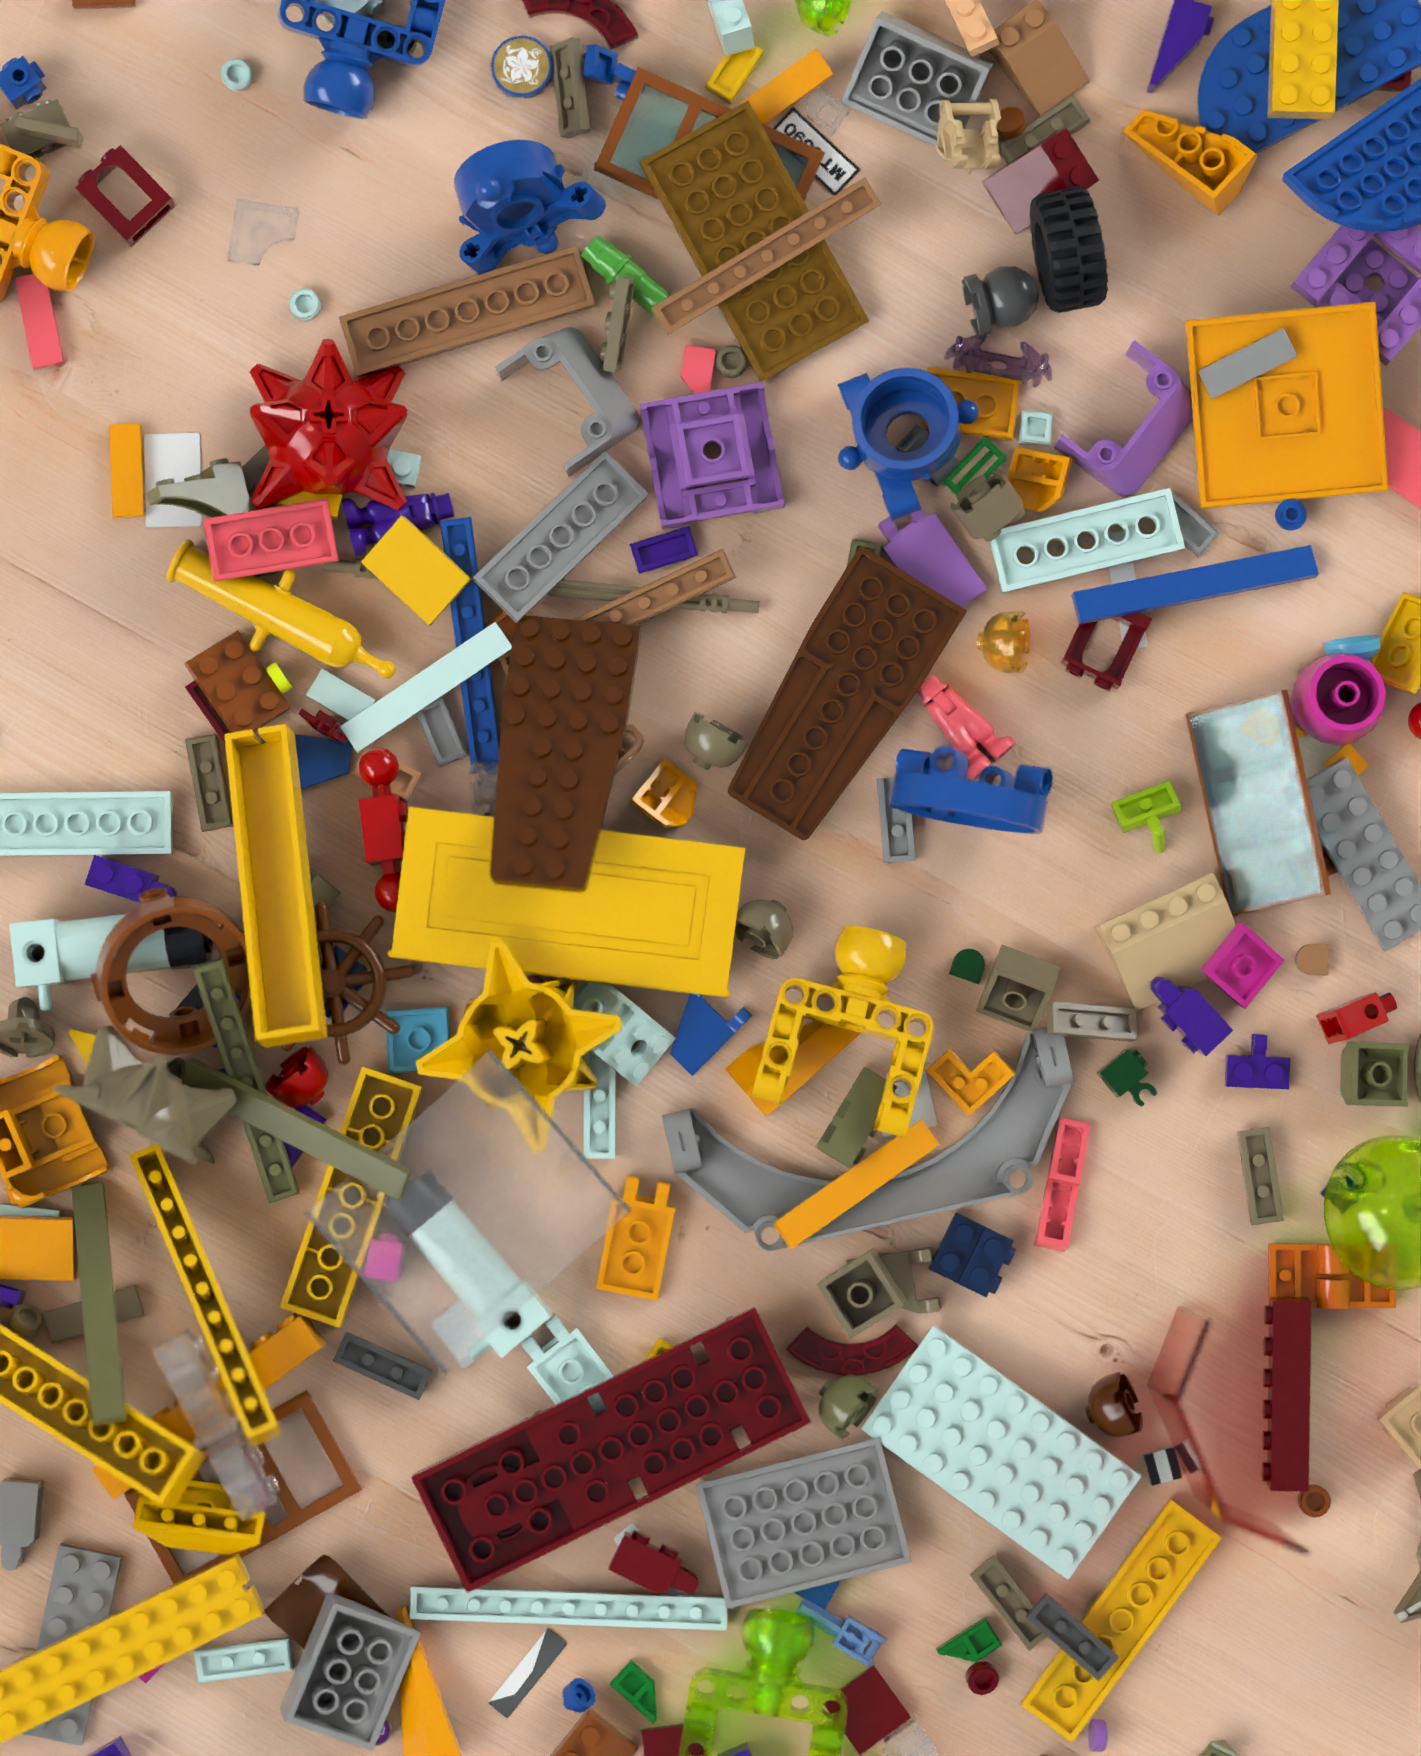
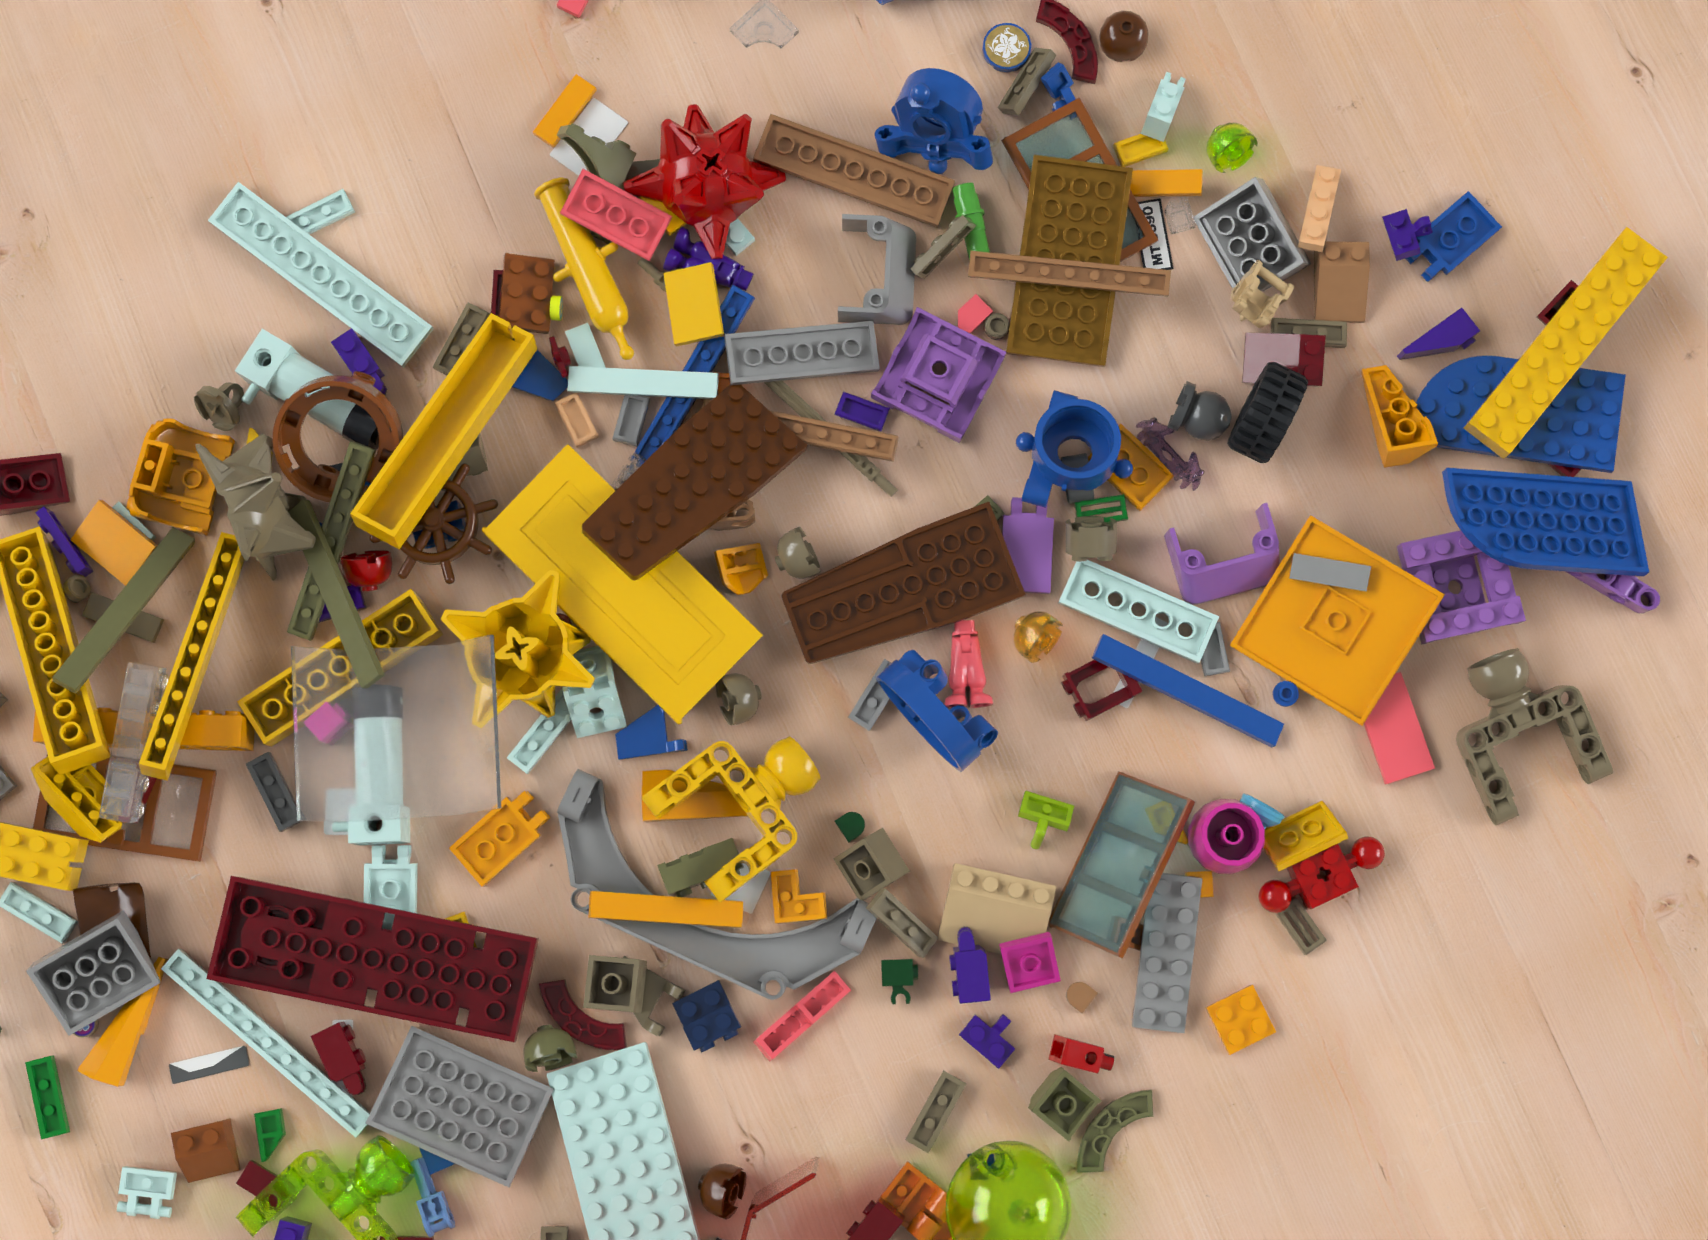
camera: 40 degrees right, 5 degrees down
(305, 304) = (756, 92): light aqua tile -> none
(383, 823) = (547, 441): red brick -> none
(418, 1035) = (463, 595): medium azure tile -> none
(578, 1695) = (228, 1105): blue tile -> none
(1011, 123) = (1292, 309): dark orange tile -> none
(1035, 428) = (1161, 514): light aqua tile -> none
(1038, 477) = (1138, 546): light orange slope -> none

